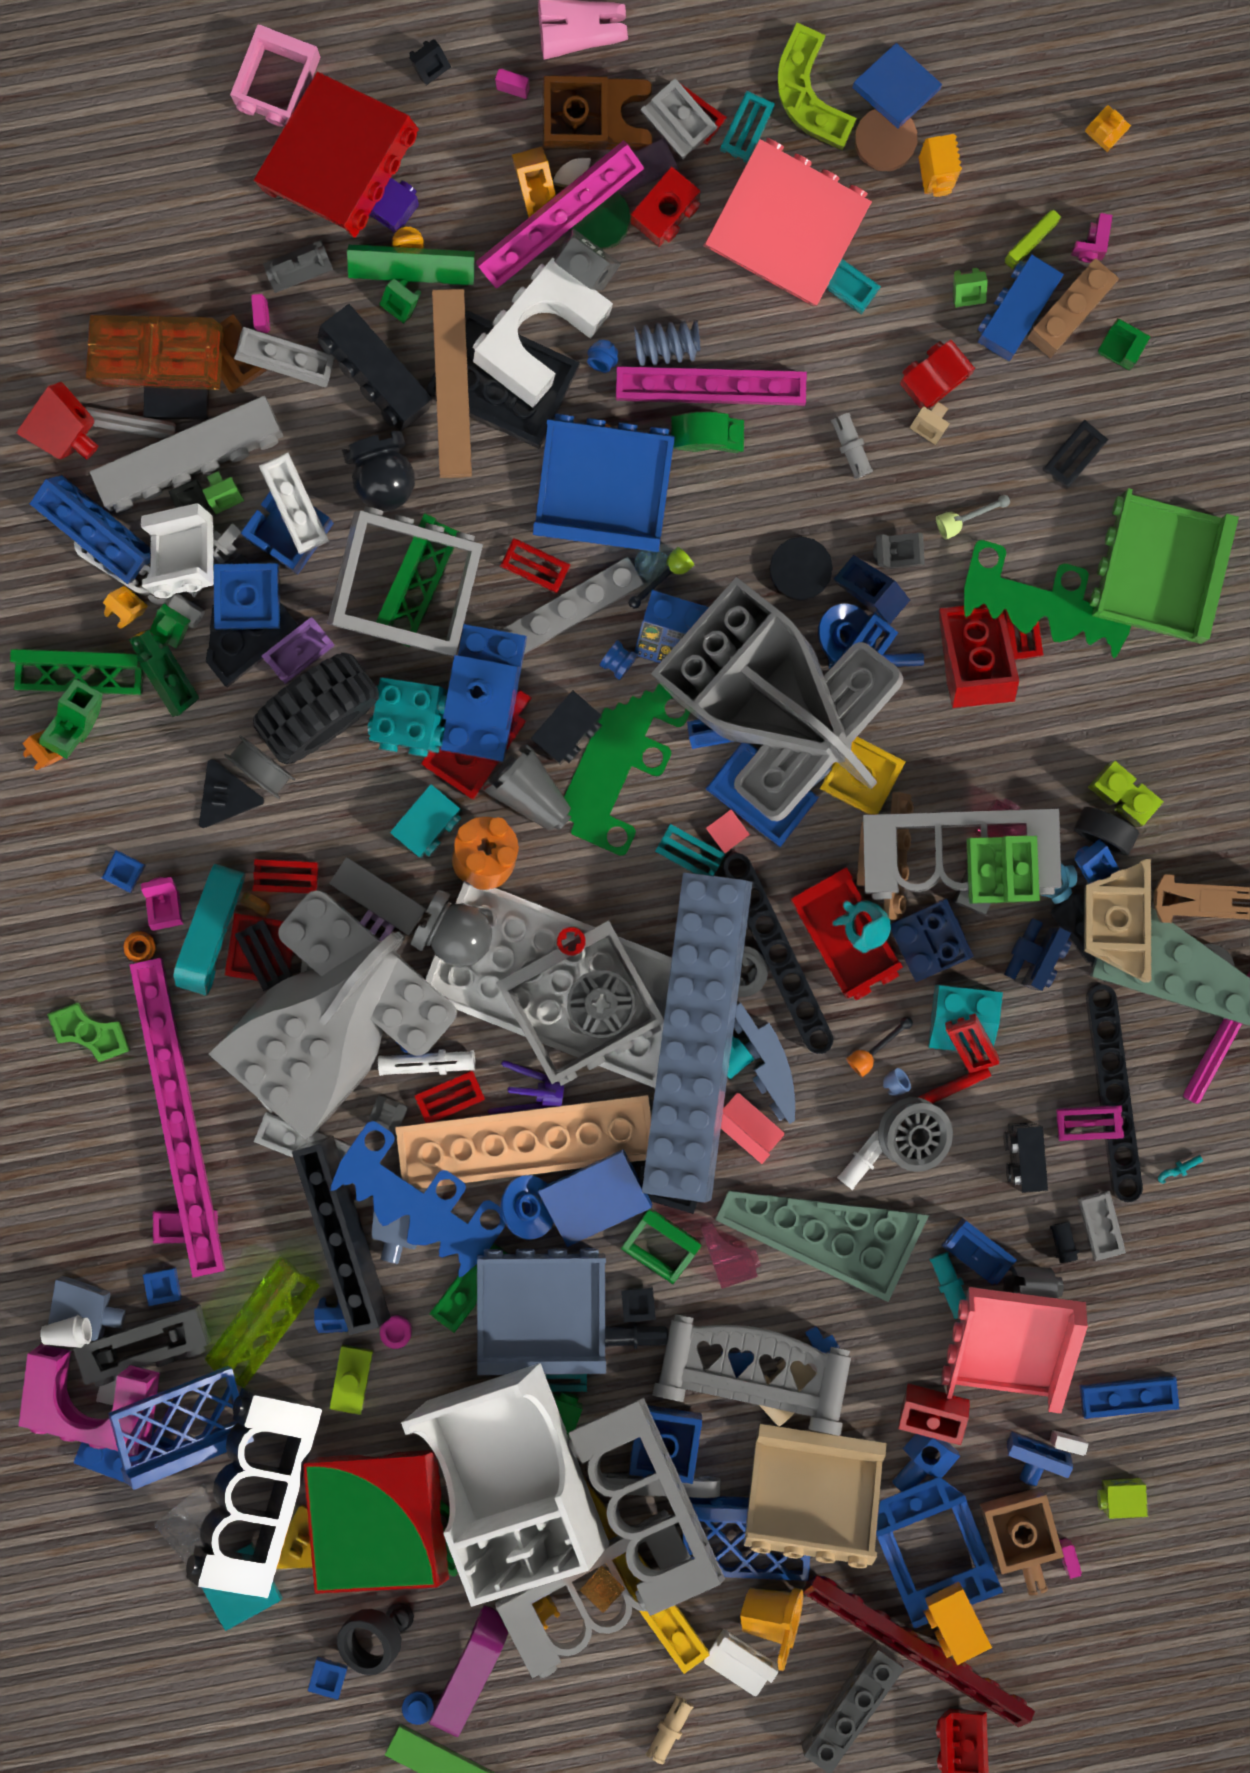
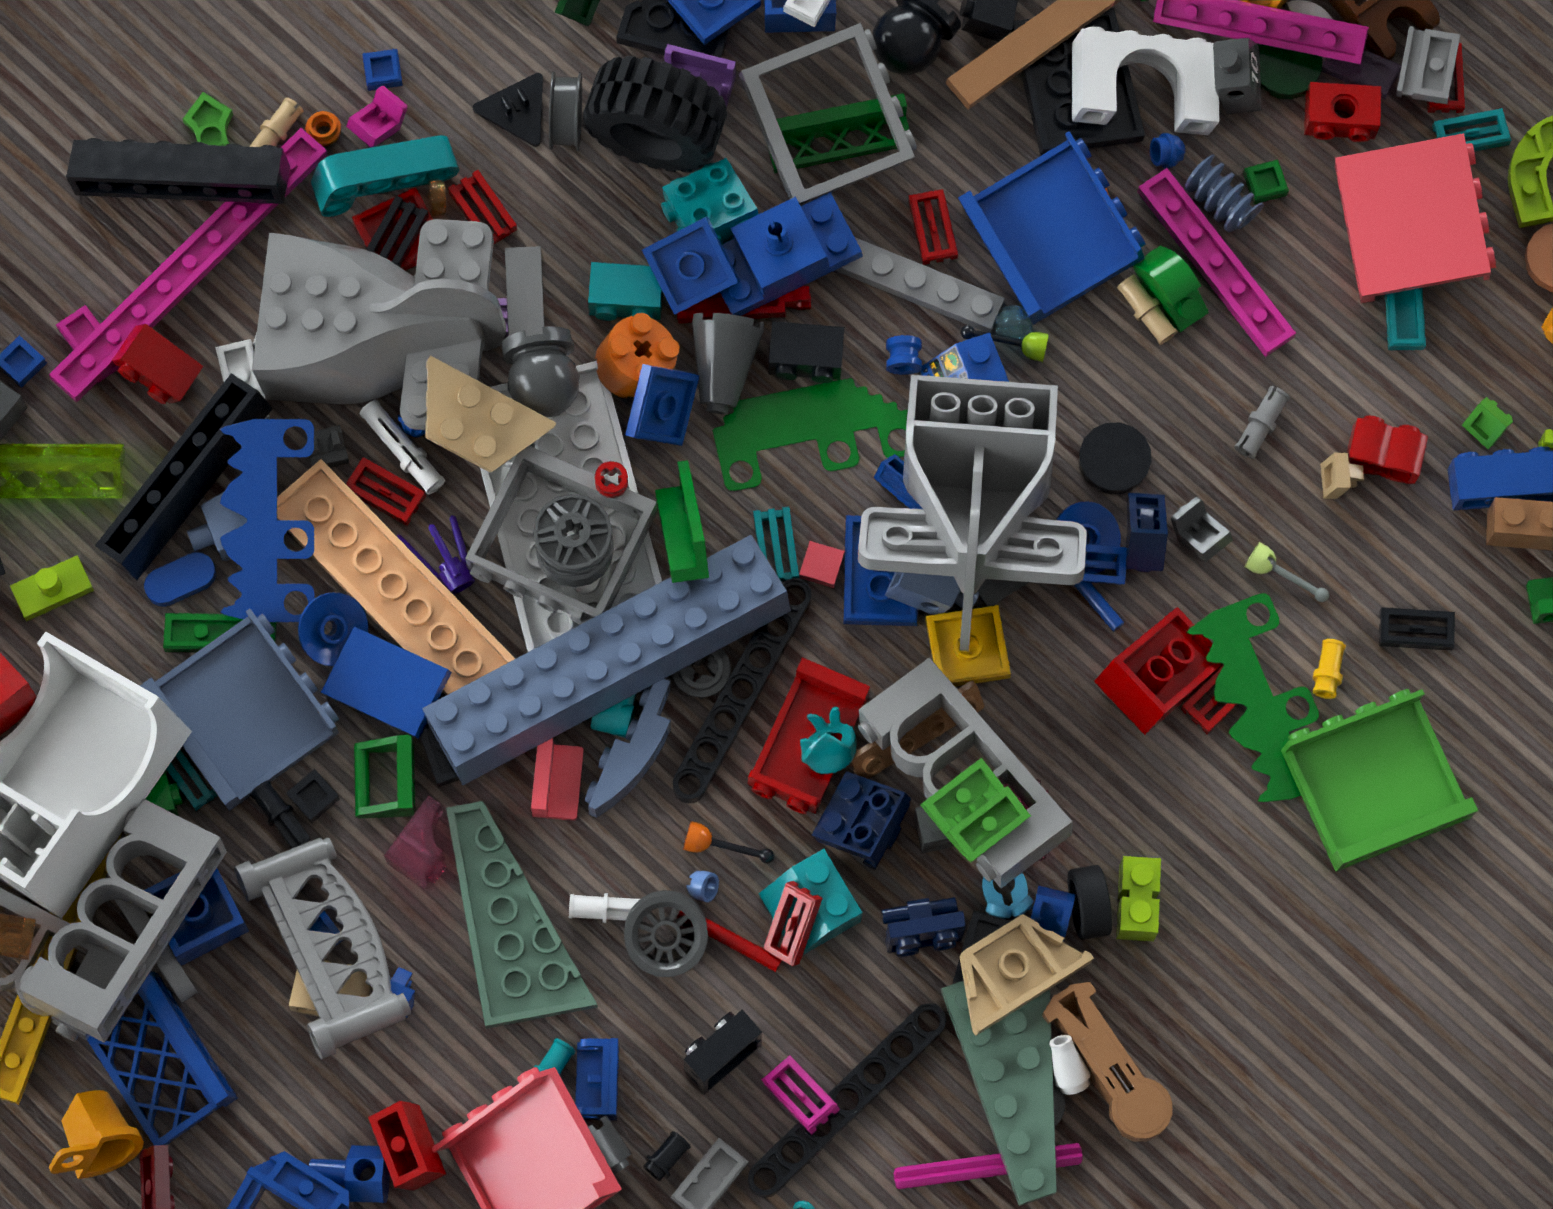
camera: 50 degrees right, 15 degrees down
(101, 1077) = (178, 171): none -> black brick
(116, 985) = (274, 130): none -> tan pin
(240, 1195) = (156, 364): none -> red brick
(329, 1319) = (94, 523): blue tile -> none
(396, 1332) = (126, 596): dark pink tile -> none
(410, 1286) = (180, 579): none -> blue tile
(448, 766) = (690, 265): none -> blue plate
(459, 1005) = (477, 419): none -> tan wing
(536, 861) = (662, 405): none -> blue tile
(641, 916) = (682, 528): none -> green fence
(675, 302) = (1266, 181): none -> green tile
(710, 462) = (1147, 309): none -> tan pin
(741, 1663) = (28, 1142): white panel -> none
(814, 1495) = (246, 1084): tan panel -> none
(1061, 538) = (1328, 673): none -> yellow pin
(1207, 930) = (1068, 1066): none -> white cone

